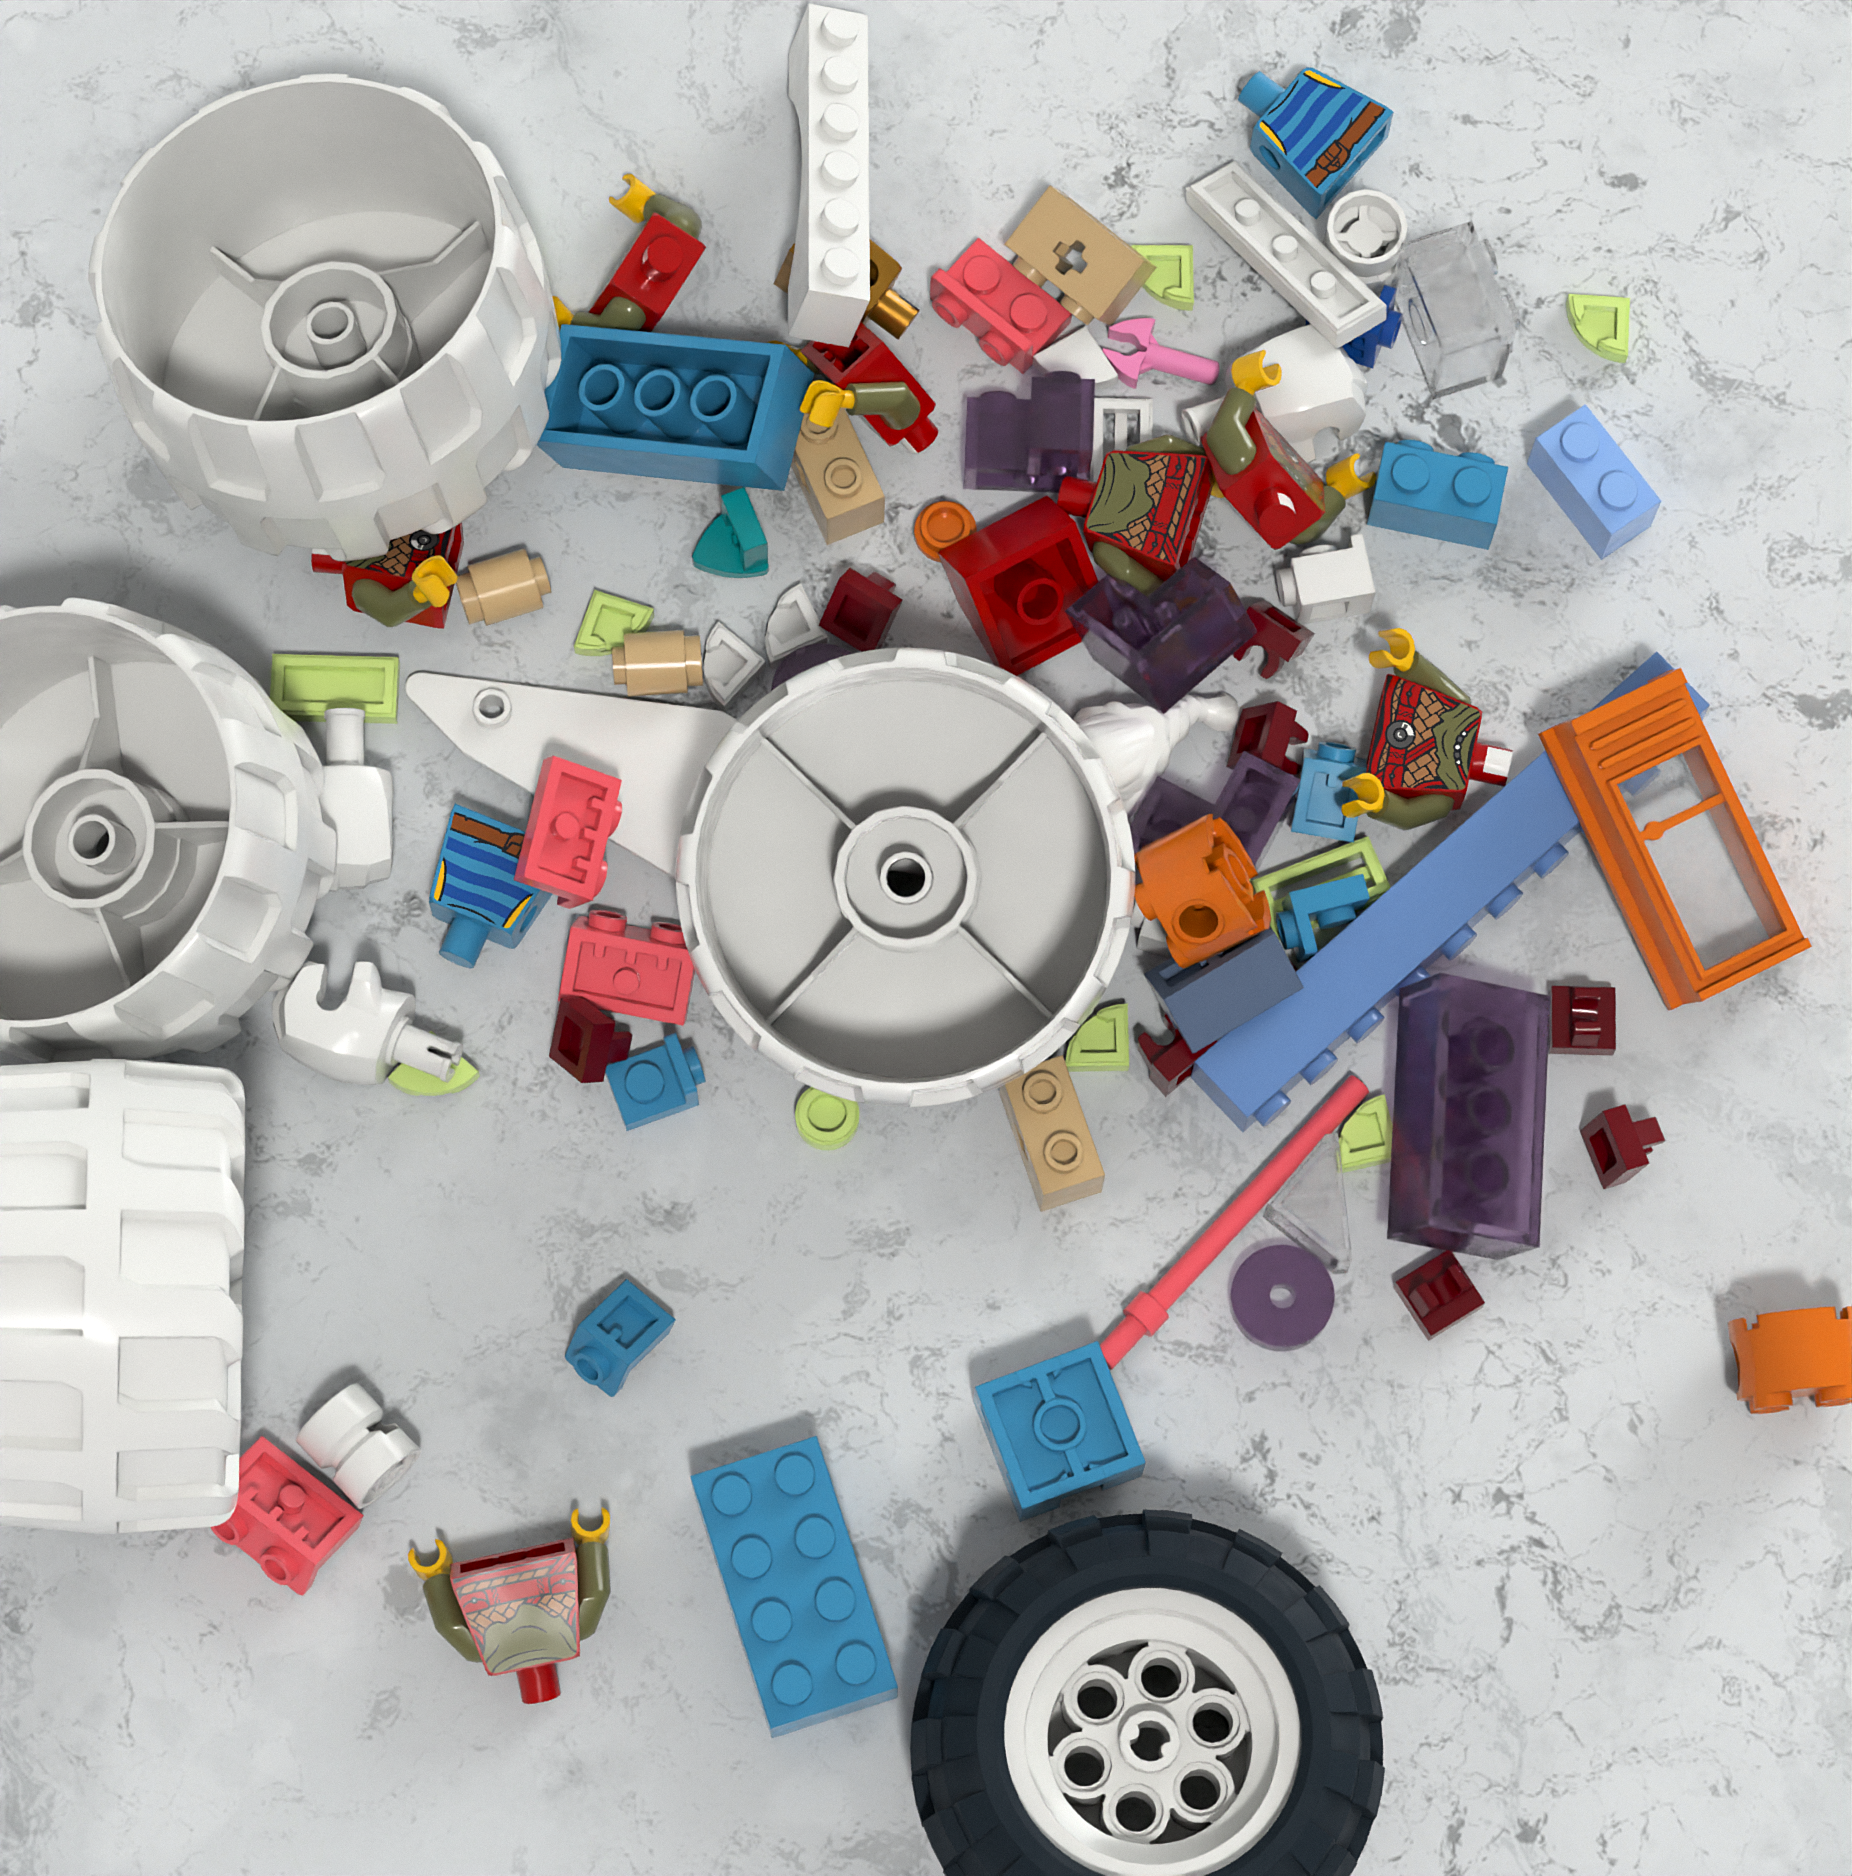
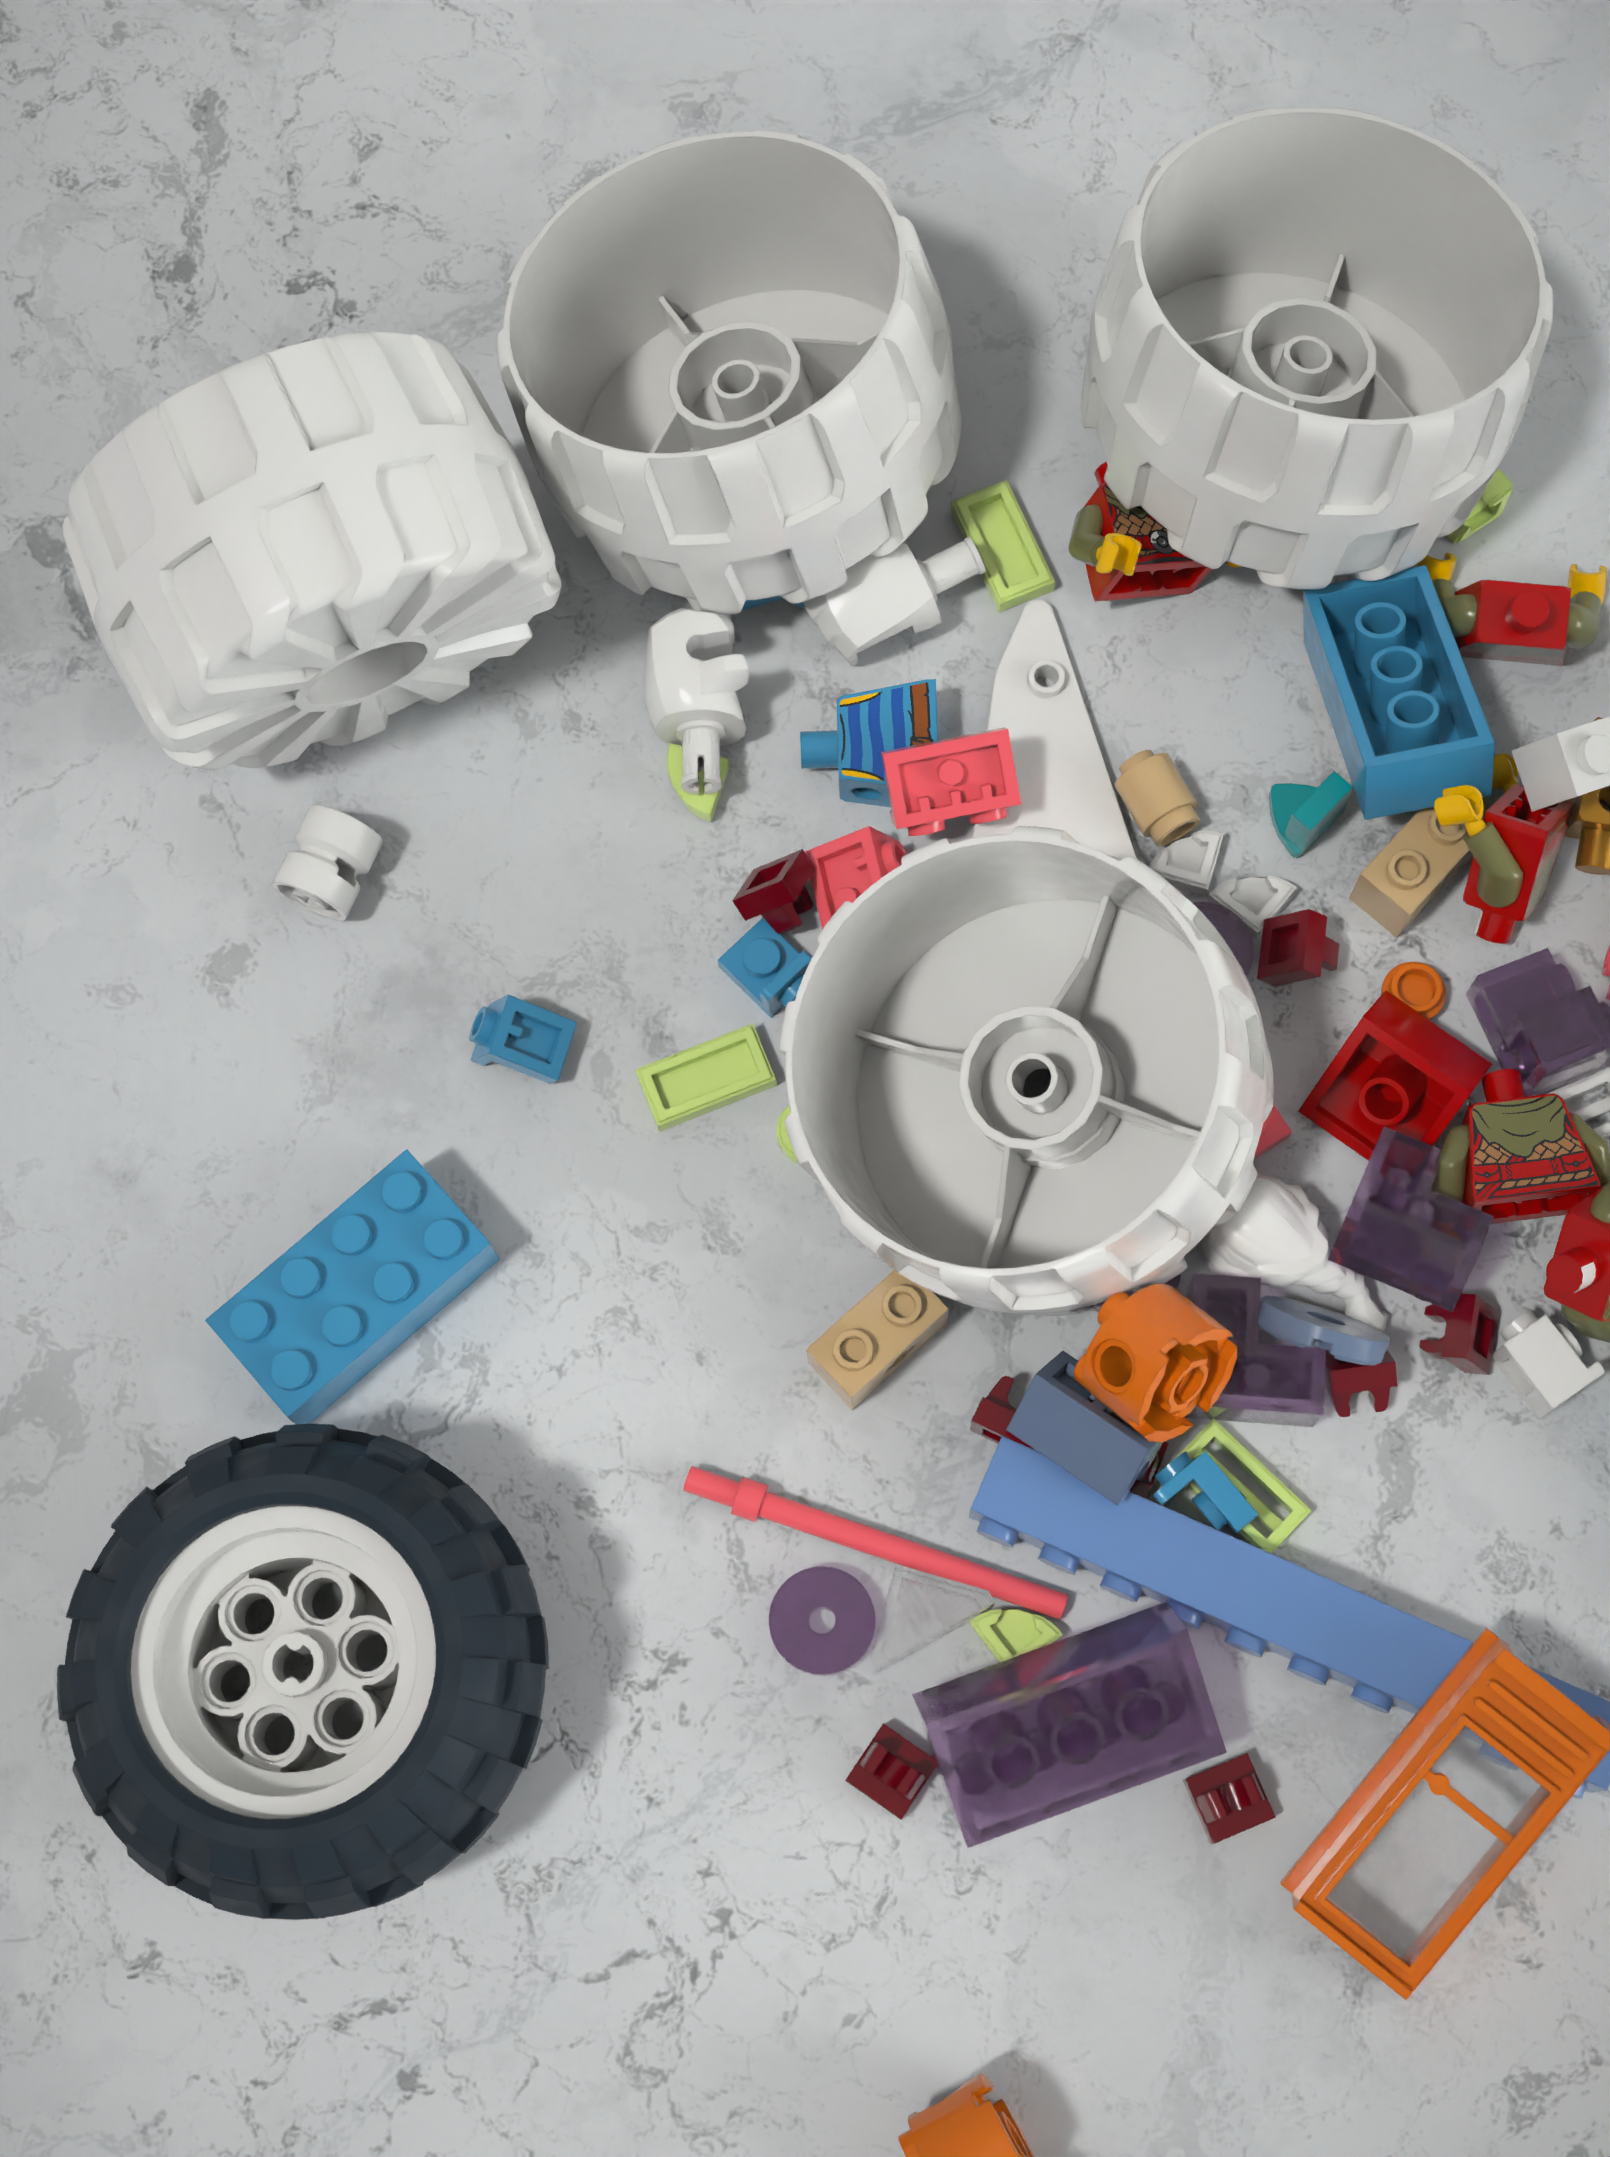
camera: 75 degrees right, 0 degrees up
(286, 1517) = (245, 829): coral bracket -> none
(503, 587) = (1160, 636): tan brick -> none
(522, 1605) = (240, 1061): torso -> none
(608, 621) = (1181, 740): yellowish green tile -> none
(731, 1186) = (706, 1077): none -> yellowish green tile
(1058, 1430) = (594, 1462): dark azure piece -> none
(1101, 1042) = (992, 1347): yellowish green tile -> none
(1222, 747) = (1323, 1328): none -> sand blue tile
(1322, 794) = (1336, 1453): dark azure bracket -> none
(1421, 743) = (1424, 1520): torso -> none
(1620, 1145) = (1115, 1888): dark red tile -> none

